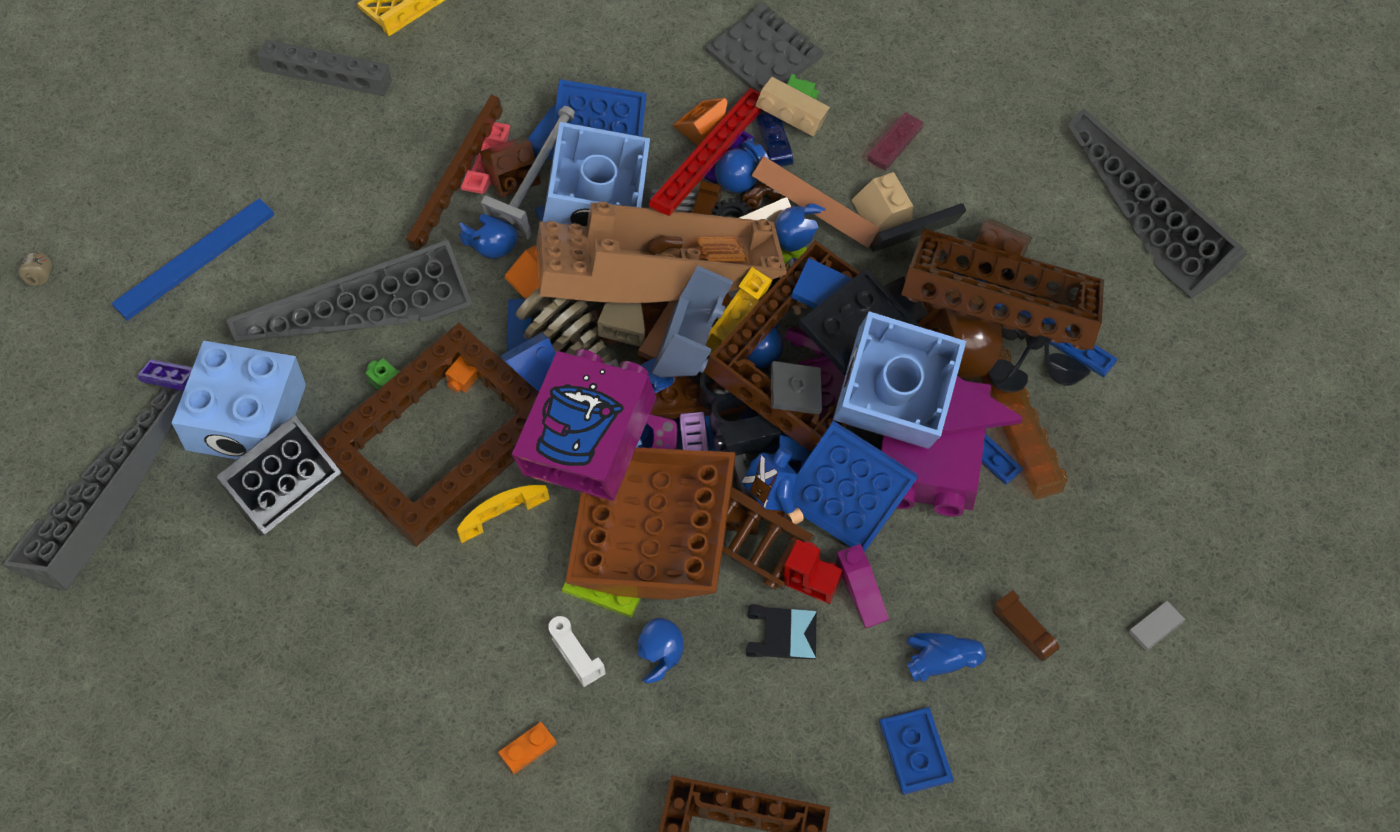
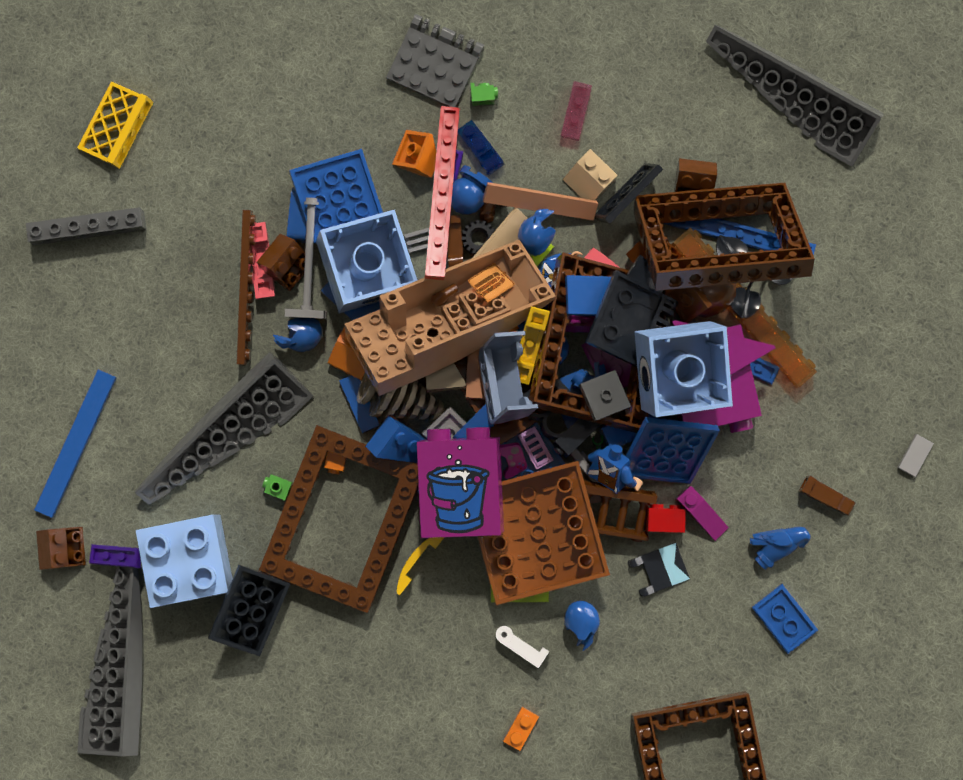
camera: 25 degrees left, 25 degrees up
(116, 348) = (60, 547): none -> reddish brown slope
(792, 106) = (484, 114): tan brick -> none

